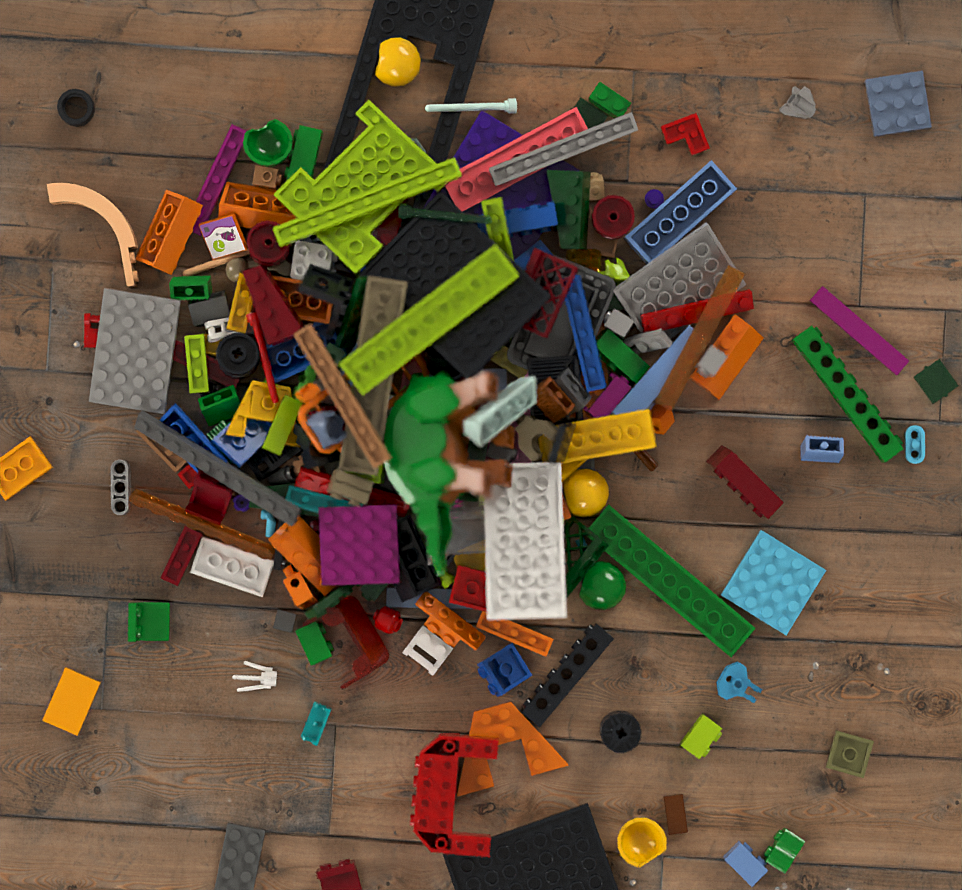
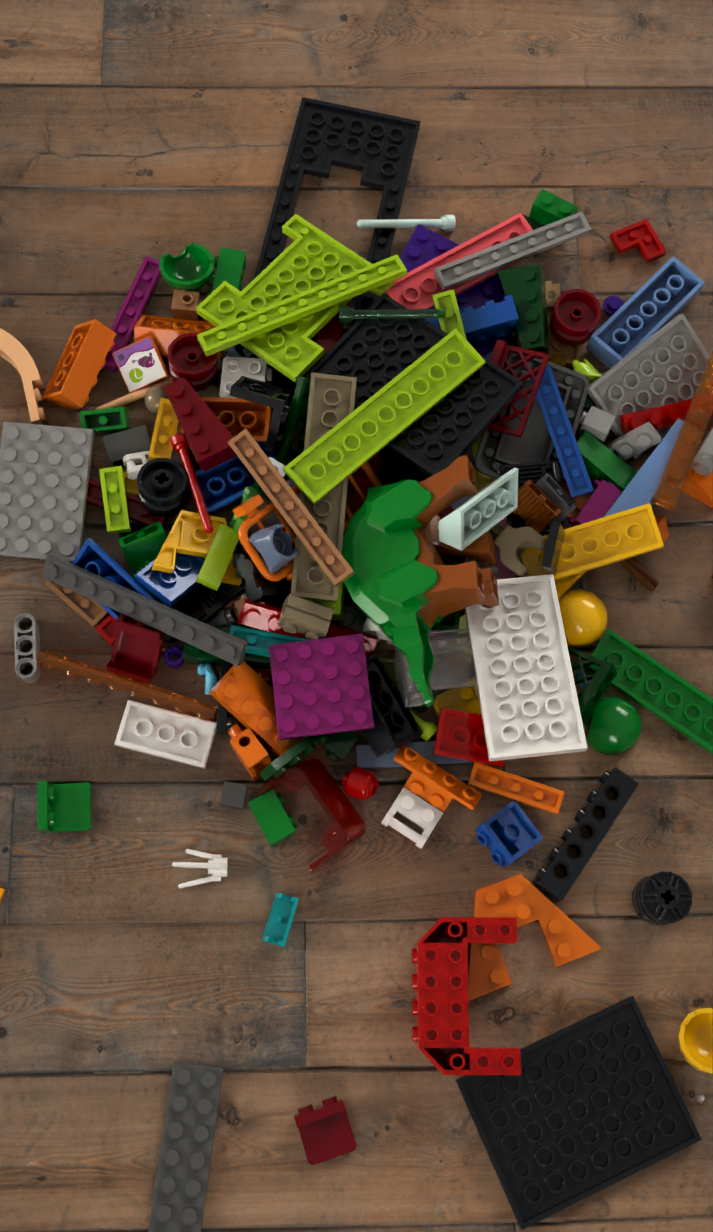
camera: 10 degrees left, 15 degrees down
(181, 556) = (103, 724): dark red plate -> none
(397, 62) = (323, 186): yellow cylinder -> none

